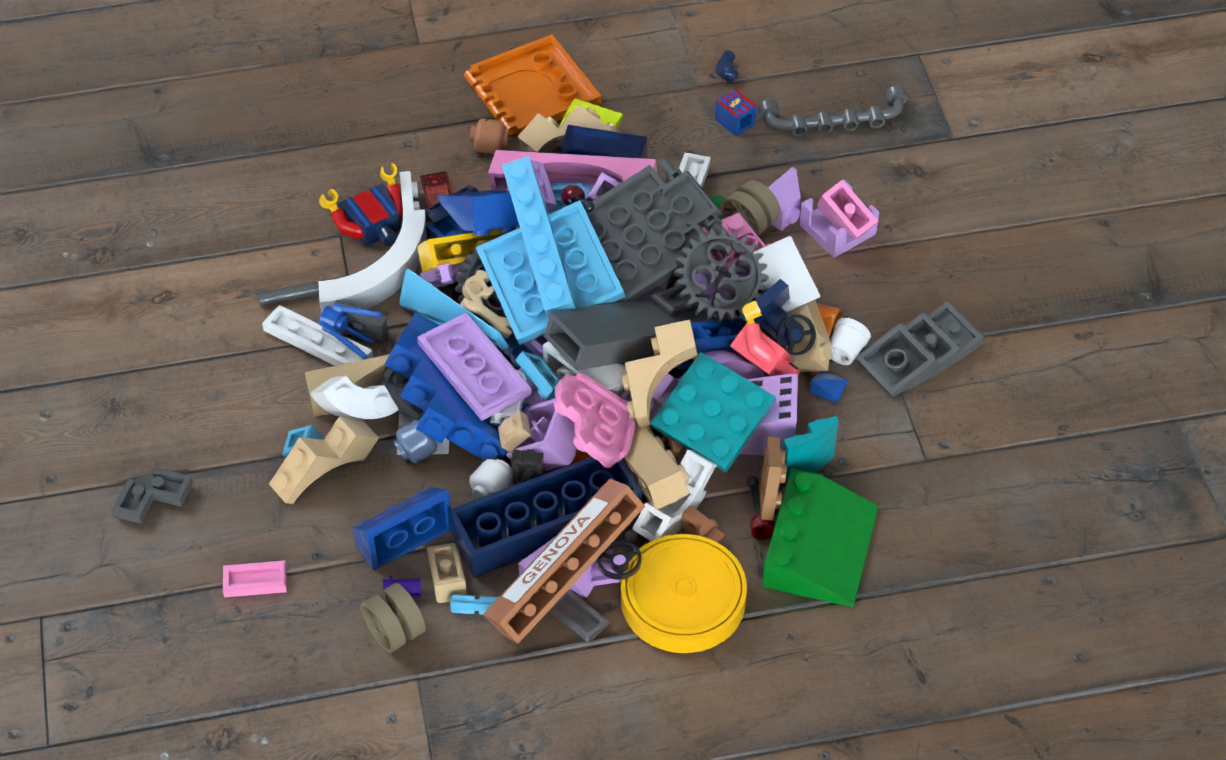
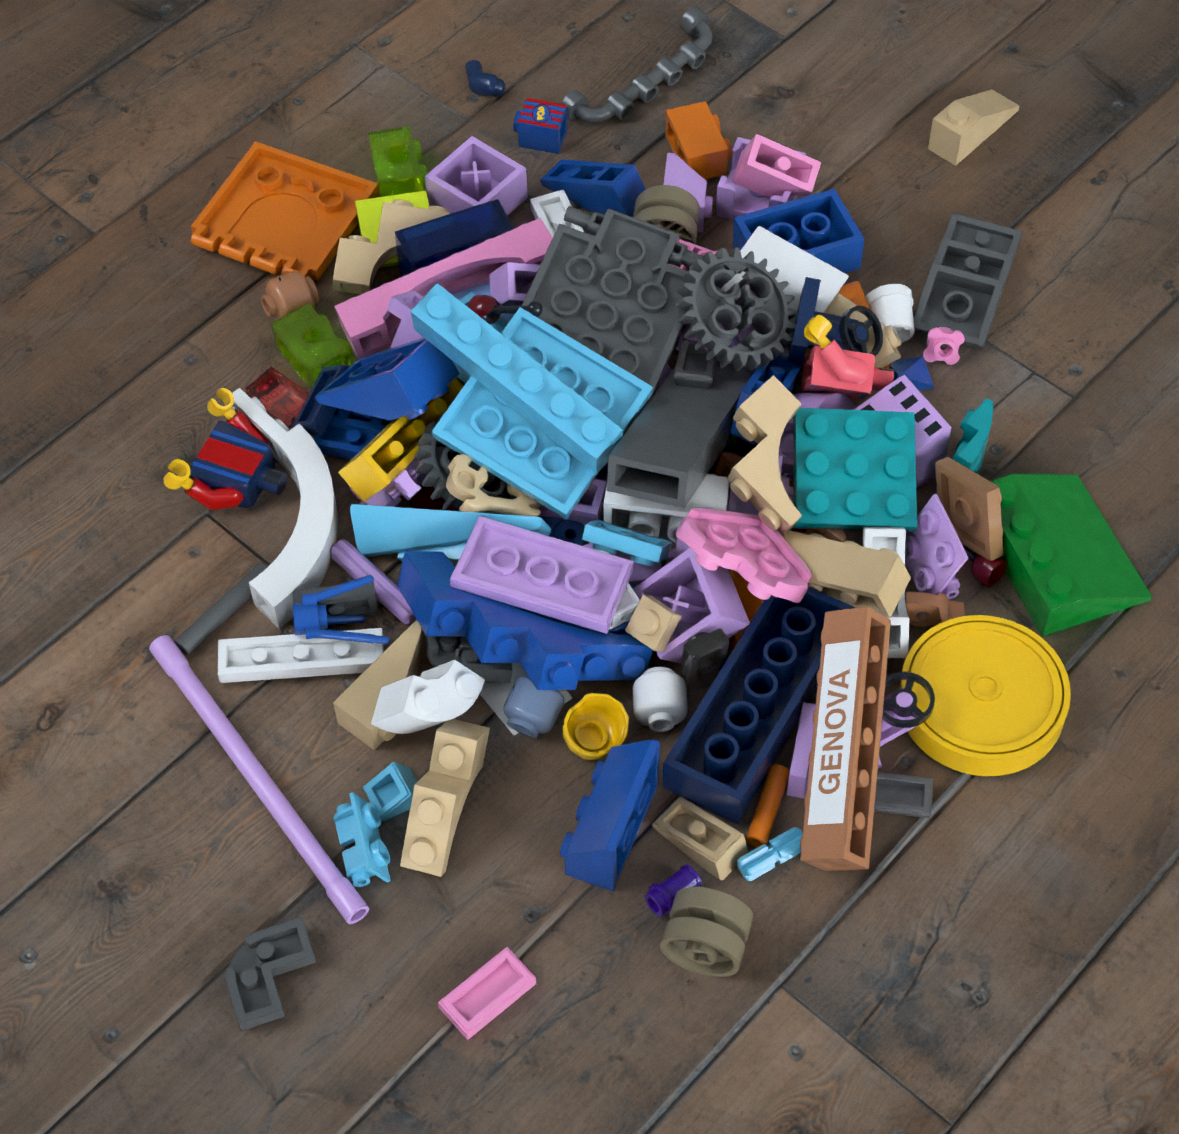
camera: 35 degrees left, 5 degrees up
(226, 474) = (337, 886): none -> lavender piece
(263, 458) = (360, 824): none -> medium azure hinge
(394, 316) = (386, 590): none -> lavender axle
(438, 471) = (595, 726): none -> yellow hair
(474, 166) = (309, 343): none -> clear neon green brick
(496, 579) = (768, 805): none -> orange piece
(624, 89) = (396, 161): none -> clear neon green brick
(662, 124) = (476, 176): none -> lavender brick
(731, 496) = (934, 551): none -> lavender hinge
(732, 164) = (596, 184): none -> blue slope
(821, 169) = (697, 139): none -> orange brick
(835, 263) = (811, 223): none -> blue brick
(868, 374) = (940, 336): none -> bright pink plate
(1020, 251) = (968, 123): none -> tan slope

